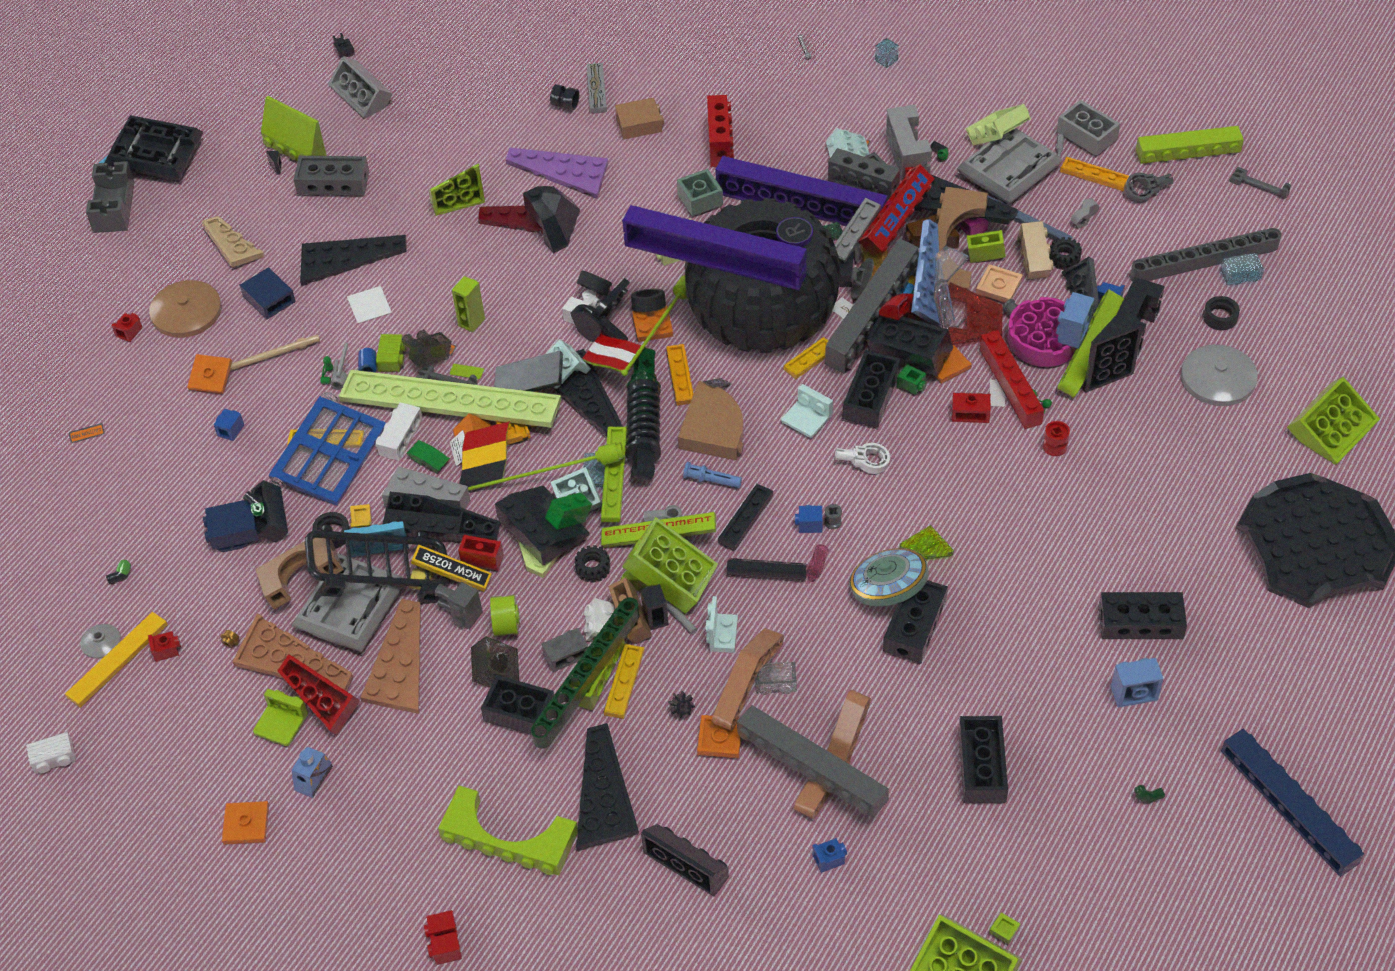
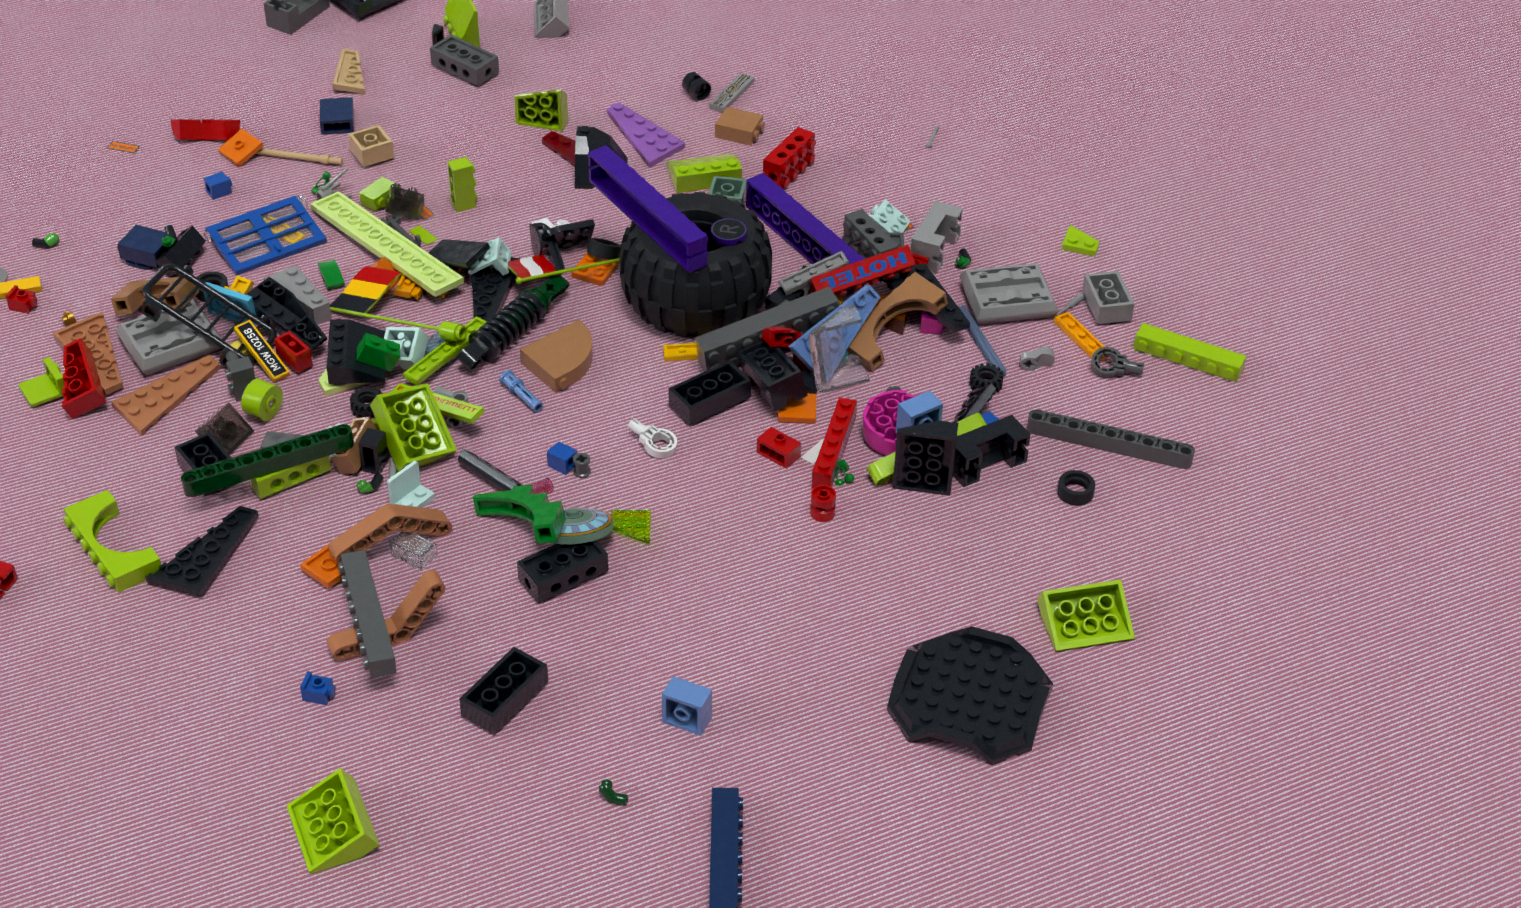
camera: 30 degrees right, 10 degrees down
(127, 327) = (220, 92): red brick -> none
(156, 372) = (207, 130): none -> red brick
(185, 308) = (273, 100): medium nougat dish -> none
(310, 771) = (24, 426): medium blue torso -> none
(335, 307) = (371, 145): none -> tan brick
(340, 256) = (418, 117): black wing -> none
(367, 360) = (353, 191): blue brick -> none
(369, 304) = (404, 158): white sticker -> none
(399, 431) = (328, 247): white brick -> none
(594, 283) = (572, 213): black tyre -> none
(624, 681) = (304, 492): yellow tile -> none
(652, 177) = (698, 172): none -> lime slope
(675, 640) = (373, 485): none -> arm
(680, 374) = (580, 309): light orange tile -> none
(684, 858) = (211, 627): black slope -> none
(686, 708) = (317, 528): black gear -> none
(717, 382) = (595, 330): sticker -> none
(745, 516) = (516, 431): black plate -> none
(809, 411) = (643, 387): light aqua bracket -> none
(849, 580) = (525, 504): none -> green arch
(886, 52) = (993, 168): clear light blue brick -> none
(911, 379) = (752, 408): green brick -> none
(980, 315) = (859, 386): clear red wing -> none
(986, 246) = (920, 340): lime brick -> none
(997, 124) = (1025, 254): yellowish green window -> none
(999, 283) = (904, 373): light nougat plate -> none
(1004, 928) = (391, 817): lime plate -> none
(1012, 87) = (1080, 242): none -> lime wing
(1035, 250) = (958, 362): tan wedge -> none
(1142, 615) = (751, 665): black brick -> none
(1219, 375) = (1023, 532): light grey dish -> none
(1240, 176) = (1215, 399): dark grey hinge -> none
(1242, 269) = (1132, 464): clear light blue brick -> none

